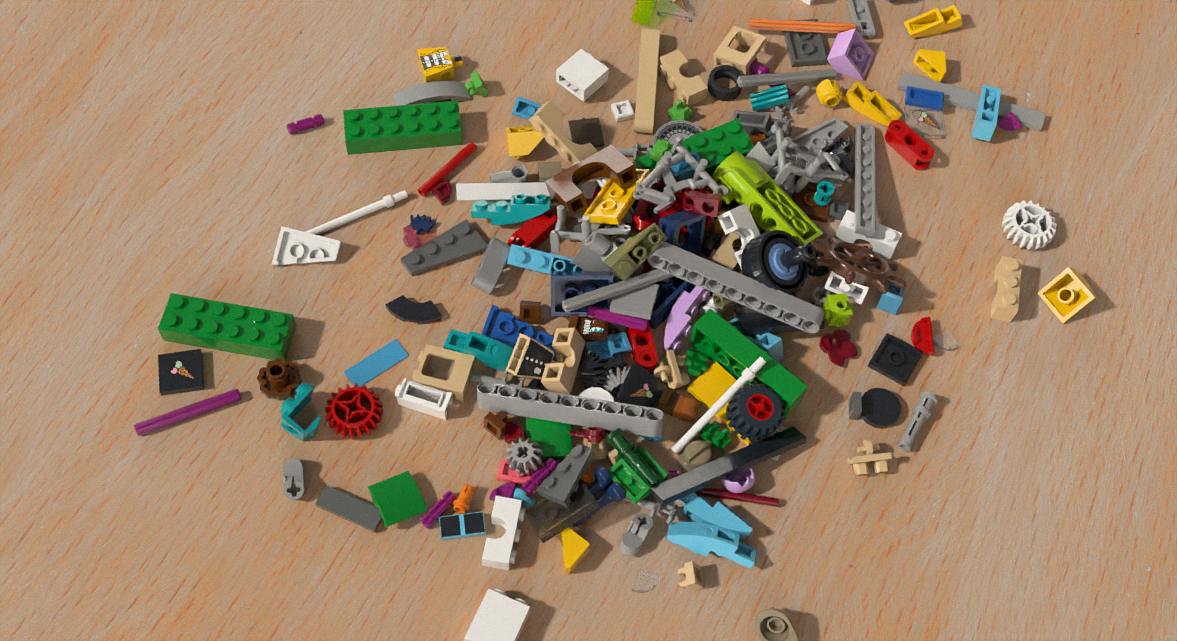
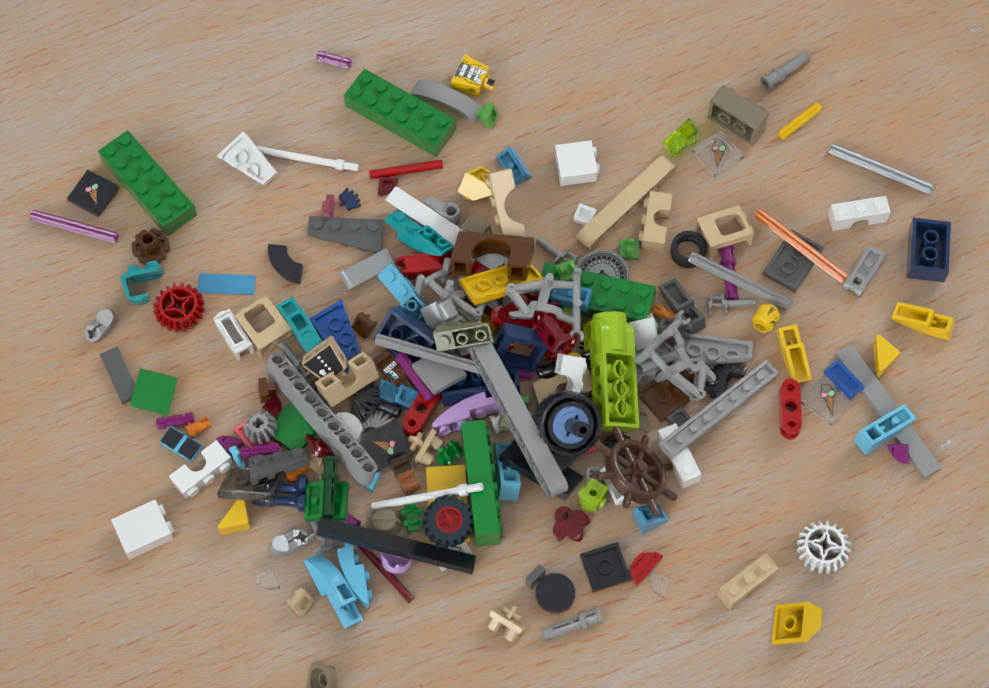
camera: 45 degrees right, 5 degrees up
(586, 131) = (539, 214): clear smoke piece -> none
(769, 97) = (712, 285): teal tile -> none
(821, 193) = (673, 402): teal bush -> none
(850, 54) = (819, 299): lavender slope -> none

